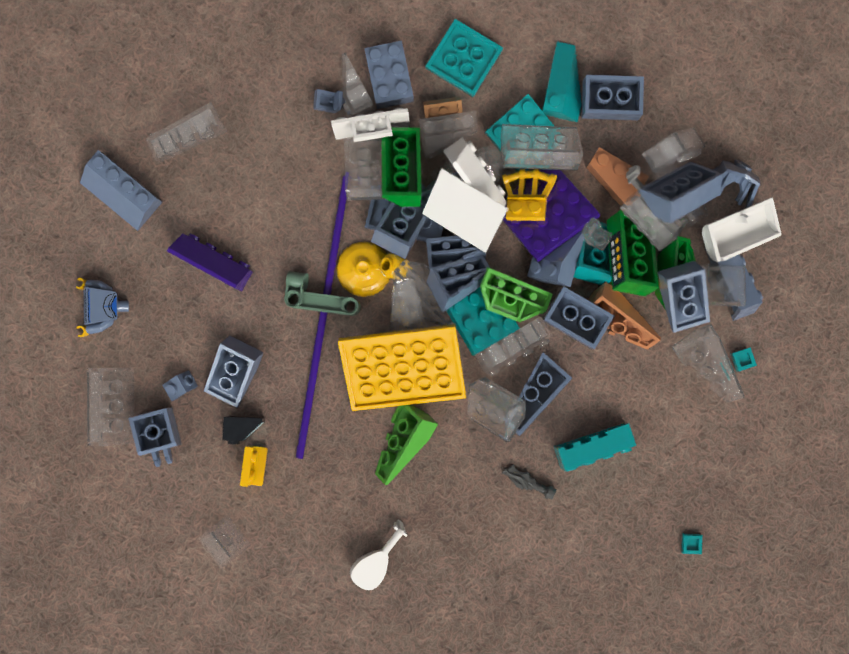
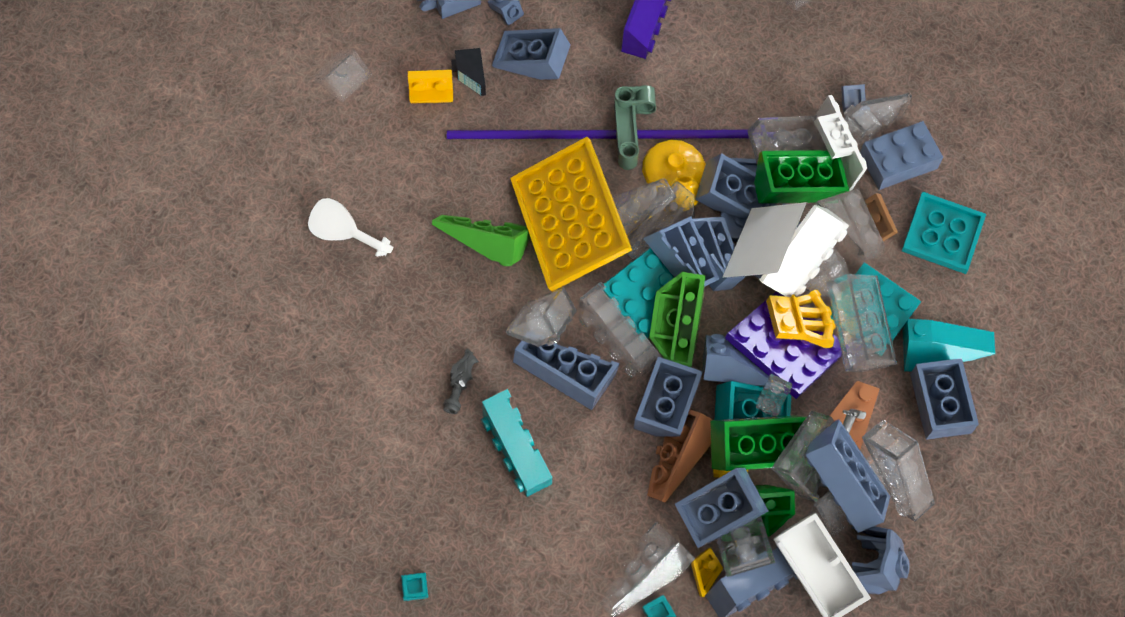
camera: 75 degrees right, 20 degrees down
(719, 317) = (706, 570): none -> yellow piece

